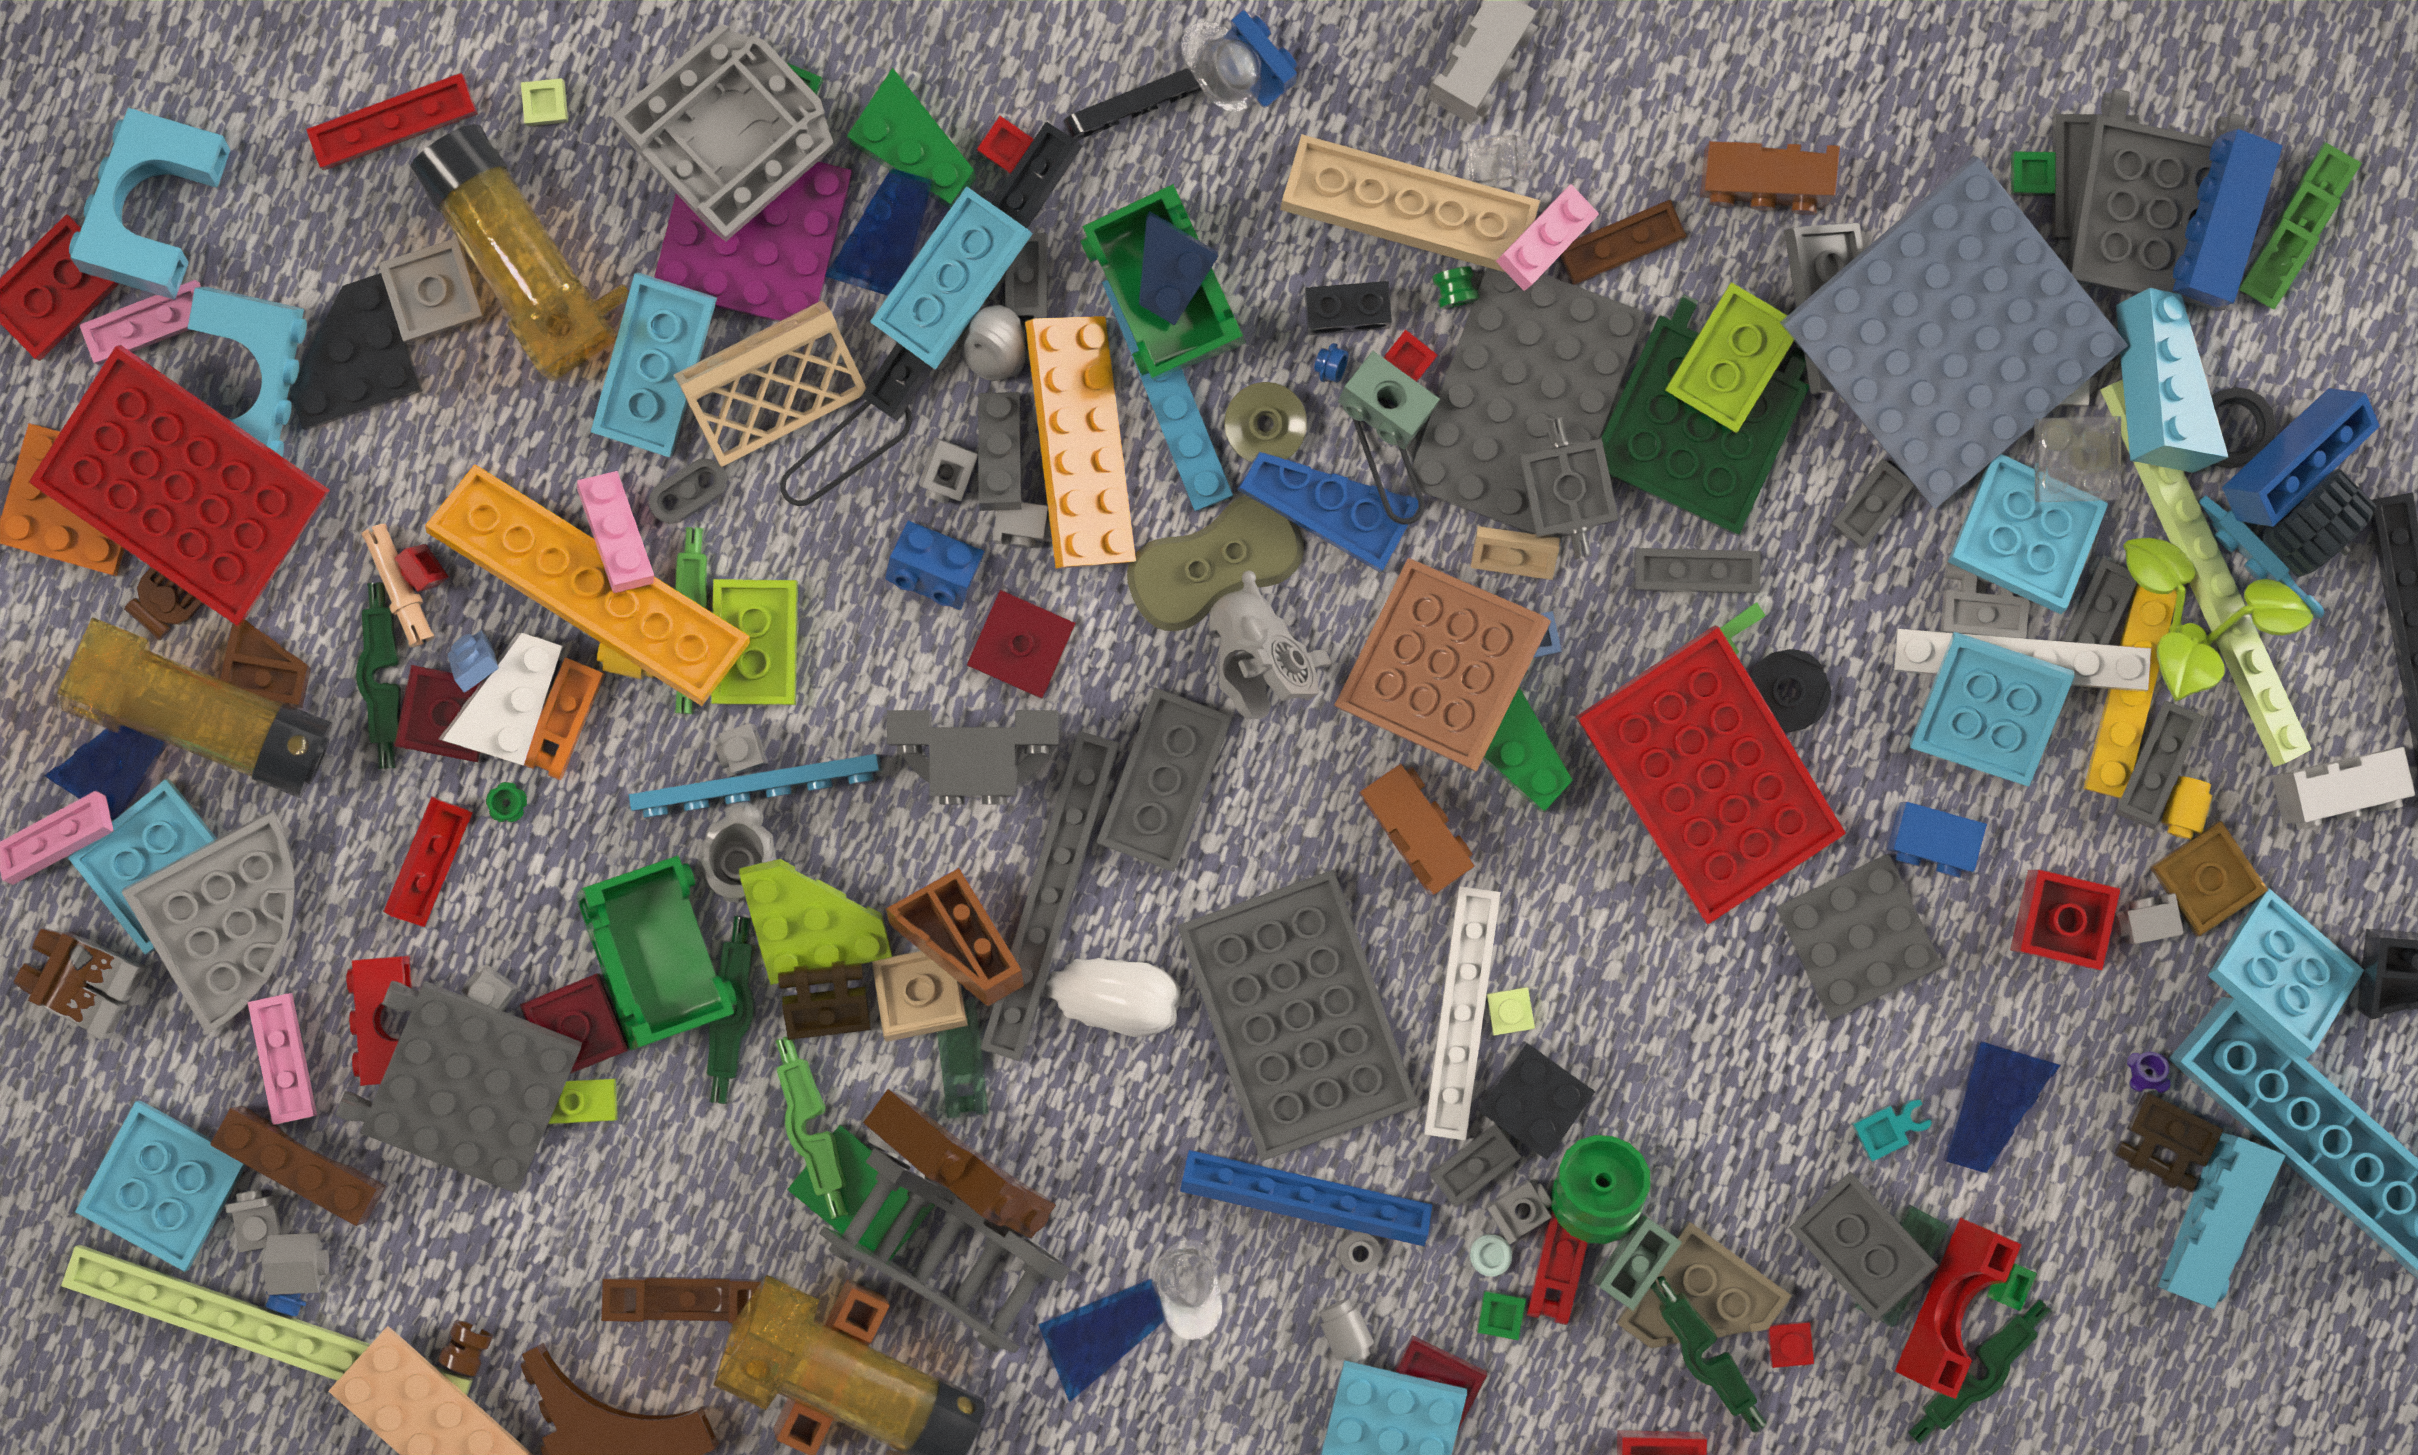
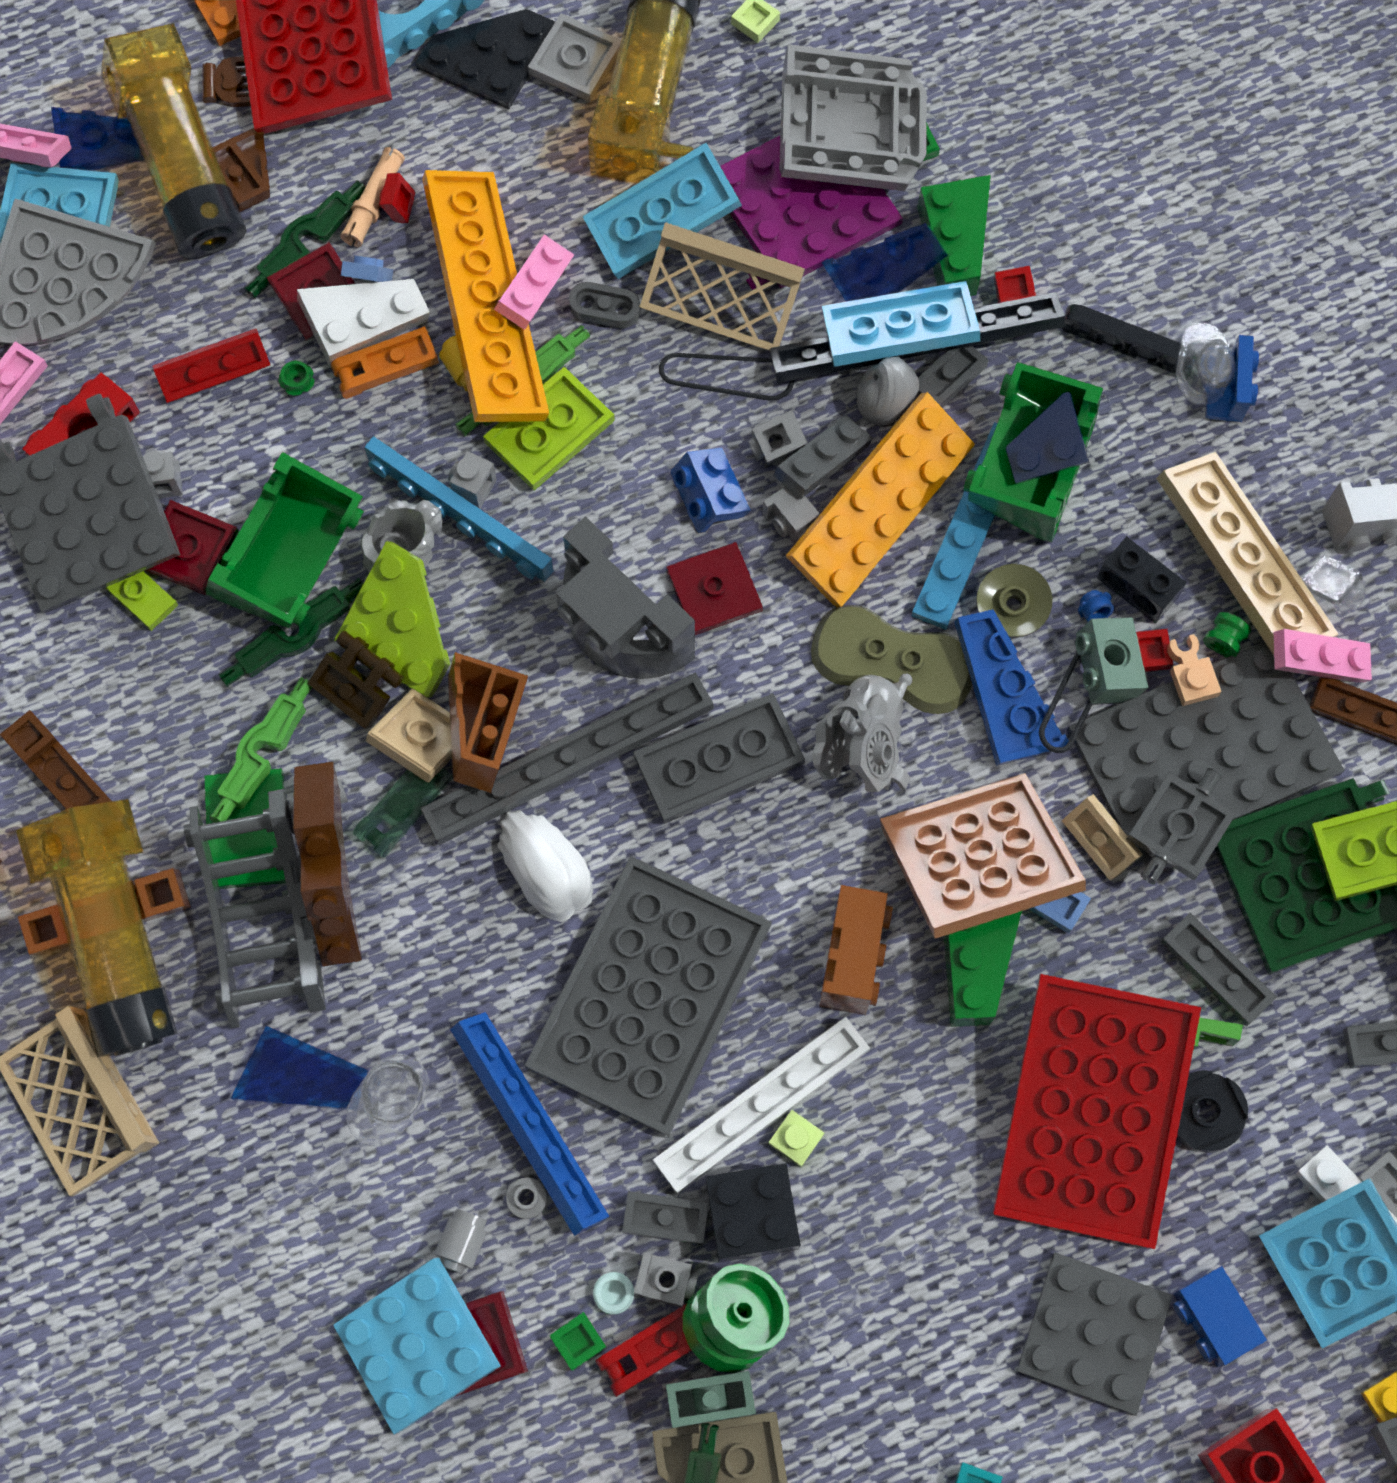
camera: 45 degrees right, 15 degrees down
(1465, 353) = (1192, 677): none -> light nougat plate

